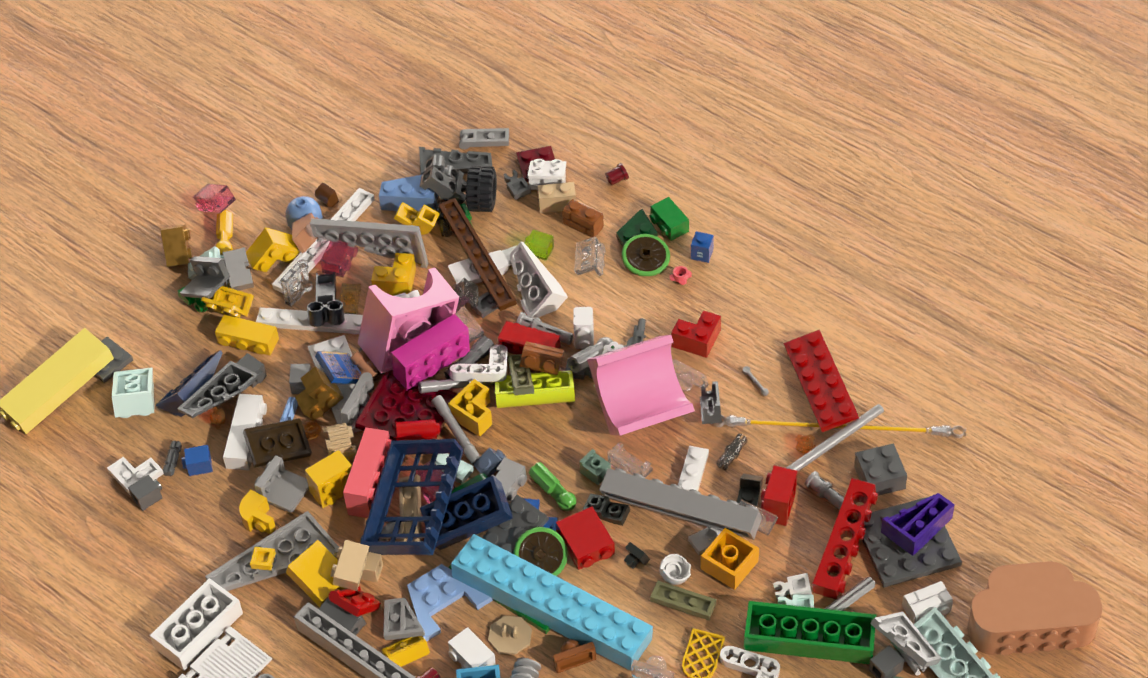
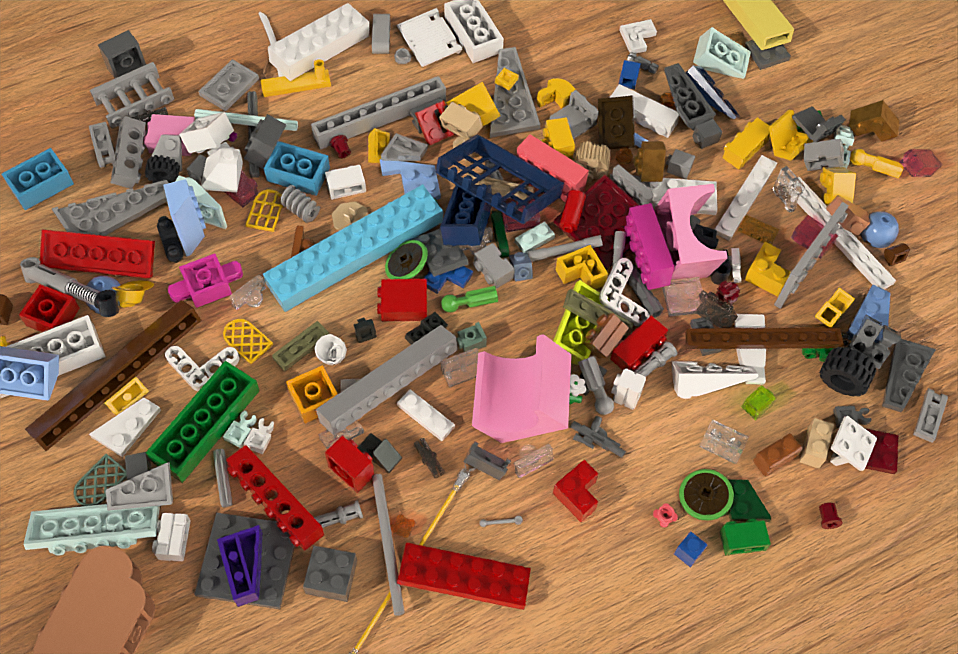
camera: 110 degrees right, 10 degrees up
(145, 492) = (615, 35): dark grey brick -> none
(326, 306) = (760, 205): black piece -> none
(338, 367) = (668, 177): blue tile -> none

